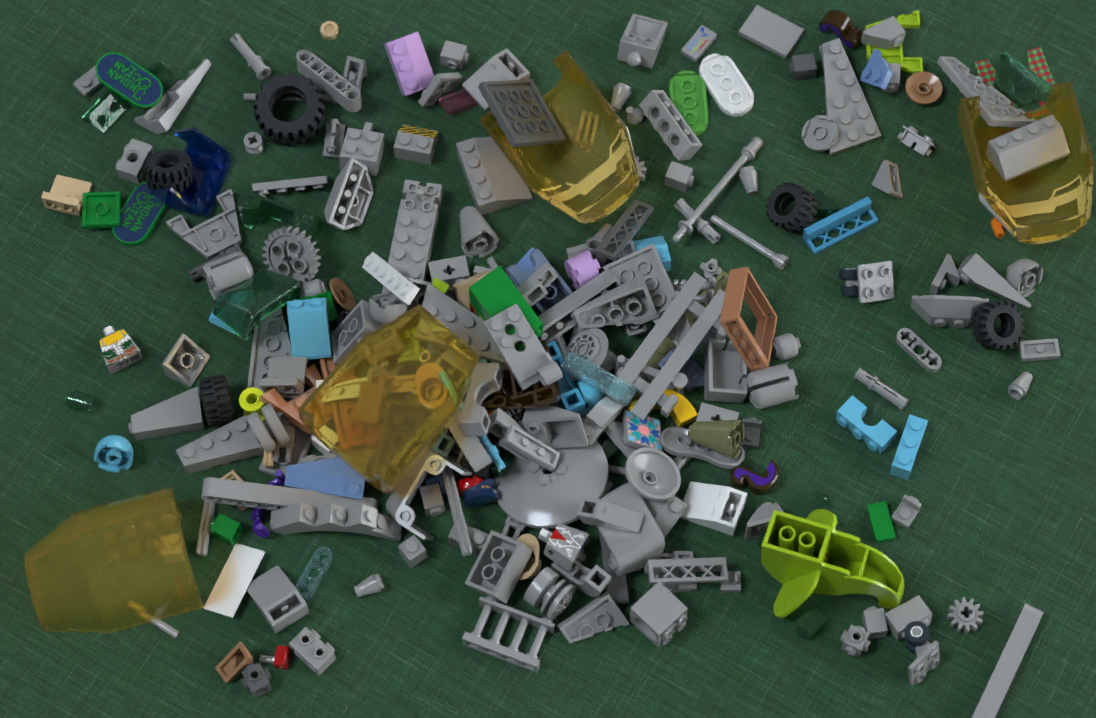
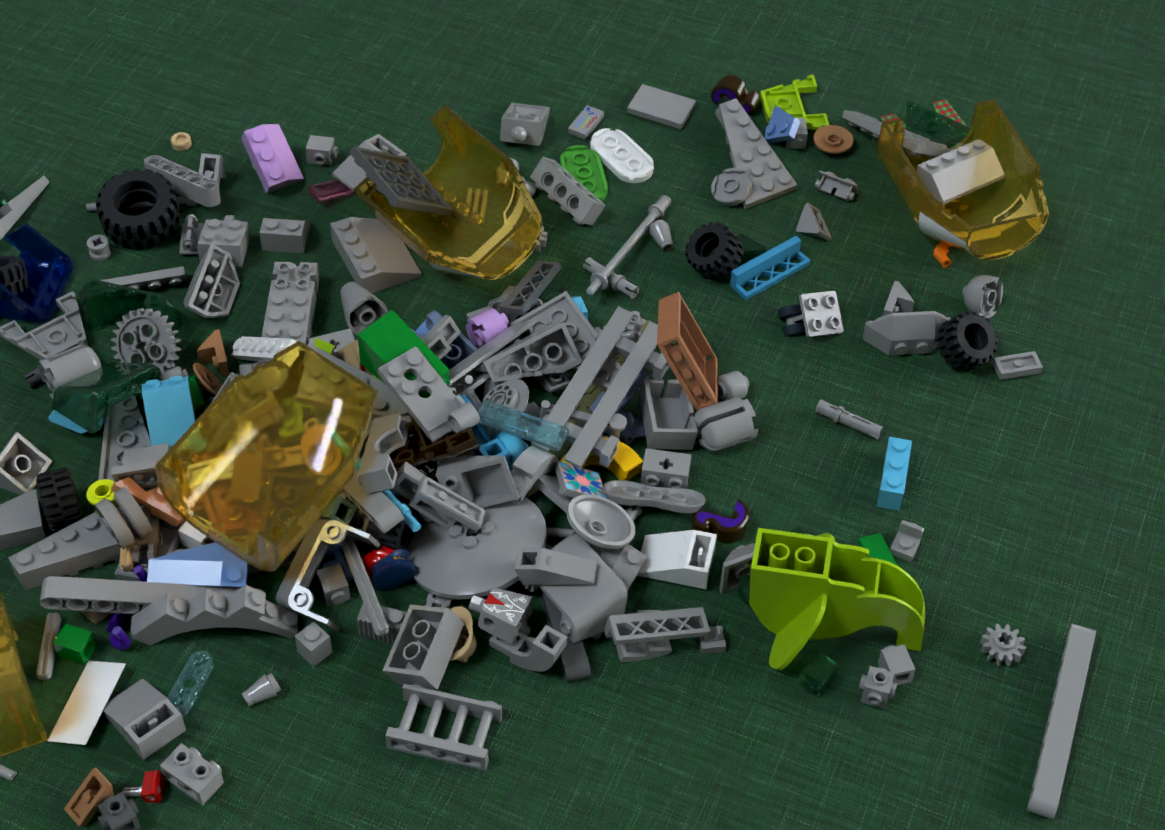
camera: 10 degrees left, 15 degrees down
(254, 61) = (97, 174): light grey pin -> none
(348, 263) = (213, 351): none -> medium nougat slope
(439, 83) = (306, 172): light grey plate -> none
(507, 457) = (413, 540): clear green cone -> none
(547, 591) = (491, 671): light grey wheel -> none
(595, 617) = (552, 694): light grey wing -> none
(659, 614) = (630, 681): light grey brick -> none
(679, 176) = (584, 238): light grey brick -> none
(719, 436) = (672, 477): olive cone -> none
(752, 432) = (707, 477): dark grey bracket -> none
(779, 260) = (709, 306): light grey piece -> none
(803, 67) = (701, 131): dark grey brick -> none
(876, 437) = (853, 467): medium azure arch -> none
(884, 34) = (782, 93): light grey slope -> none
(904, 344) = (886, 387): light grey beam -> none
(908, 612) = (937, 654): light grey brick -> none
(928, 655) = (954, 682): light grey plate -> none
(983, 276) = (944, 298): light grey wedge -> none
(1020, 386) = (1005, 403): light grey cone -> none

